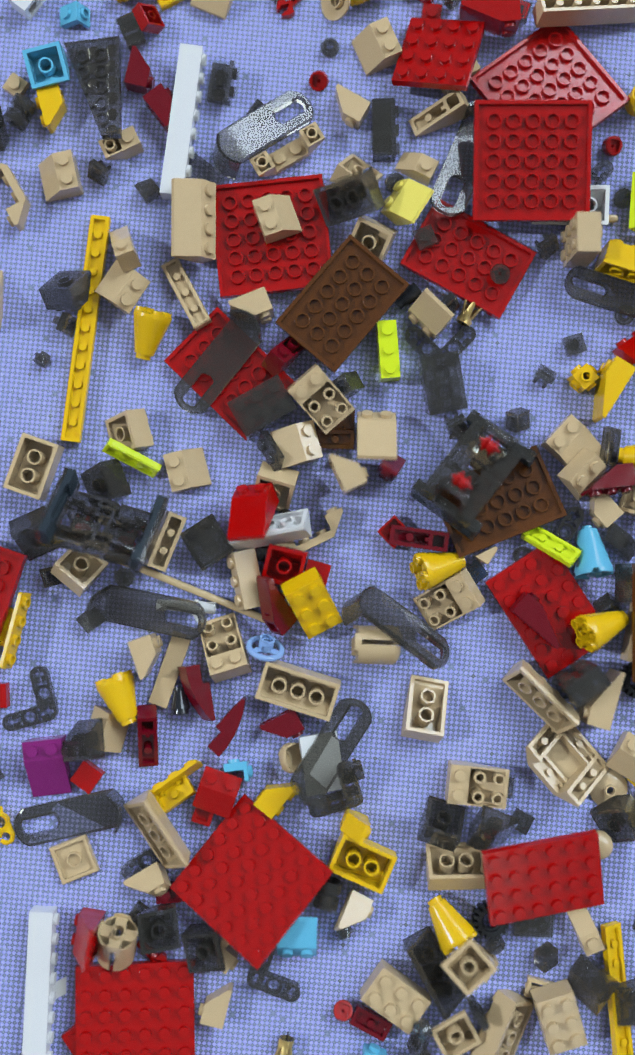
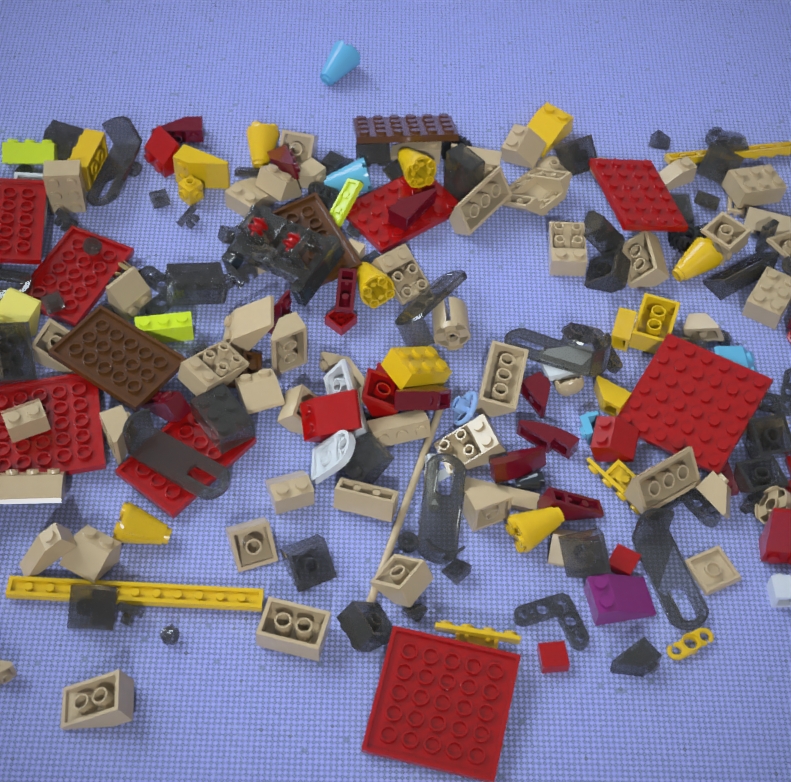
camera: 95 degrees left, 35 degrees down
(86, 518) = (358, 540): clear smoke container -> none
(131, 458) = (279, 533): neon yellow tile -> none
(186, 293) = (99, 499): tan tile -> none
(202, 817) = (641, 456): red plate -> none
(211, 511) = (331, 455): none -> white tile
(270, 450) = (267, 411): clear smoke plate -> none
(425, 709) = (506, 287): tan slope -> none

